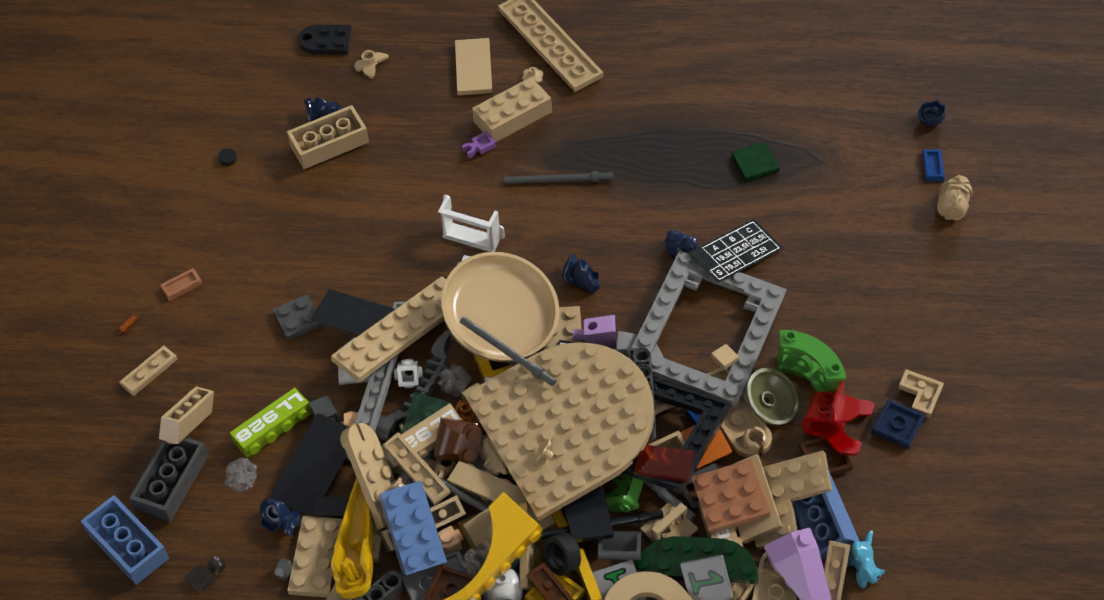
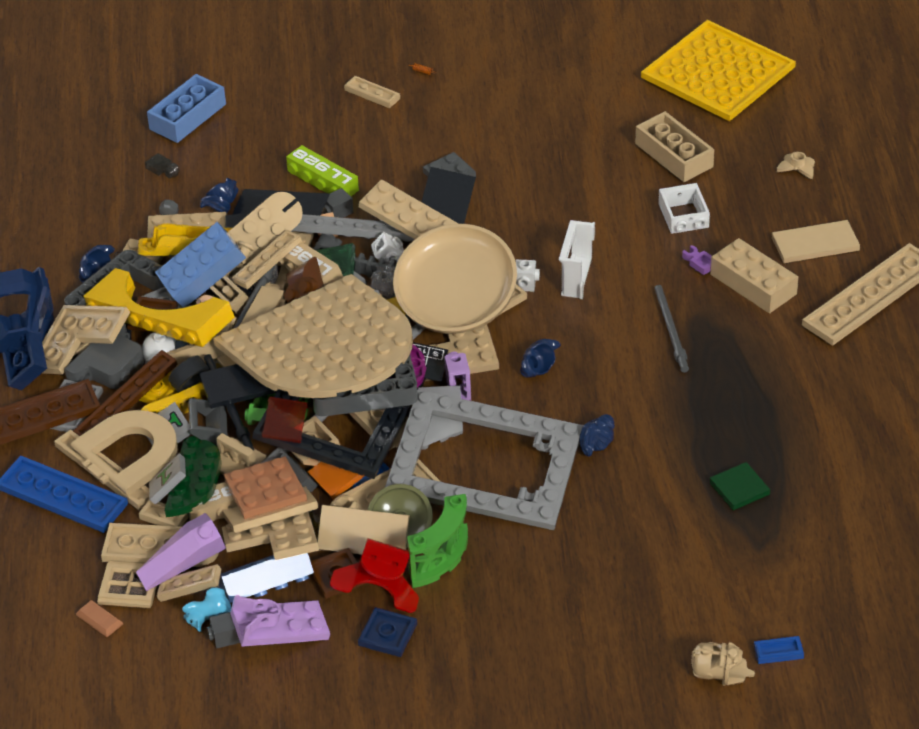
camera: 80 degrees right, 10 degrees down
(169, 478) = (253, 120): dark grey brick -> none
(181, 284) = (473, 92): nougat tile -> none
(186, 415) = (309, 109): tan brick -> none
(222, 94) = (718, 70): none -> yellow plate
(227, 157) = (637, 90): black tile -> none
(241, 474) = (256, 158): clear brick -> none
(320, 108) = (717, 138): dark blue hair -> none
(326, 39) = (820, 130): black plate -> none
(408, 133) = (689, 195): none -> white window
(534, 73) = (818, 290): tan plant -> none
(537, 371) = (370, 305): dark grey bar -> none
(544, 450) = (277, 322): tan plant -> none
(724, 356) = (439, 469): tan tile -> none
(735, 250) = (596, 474): black sticker -> none
(784, 425) = (351, 527): none -> tan tile
(888, 550) = (222, 630): none -> dark grey brick
(889, 503) = (277, 621): none -> lavender plate
(925, 388) = (433, 655): tan plate -> none
(932, 113) = (857, 639): dark blue hair -> none

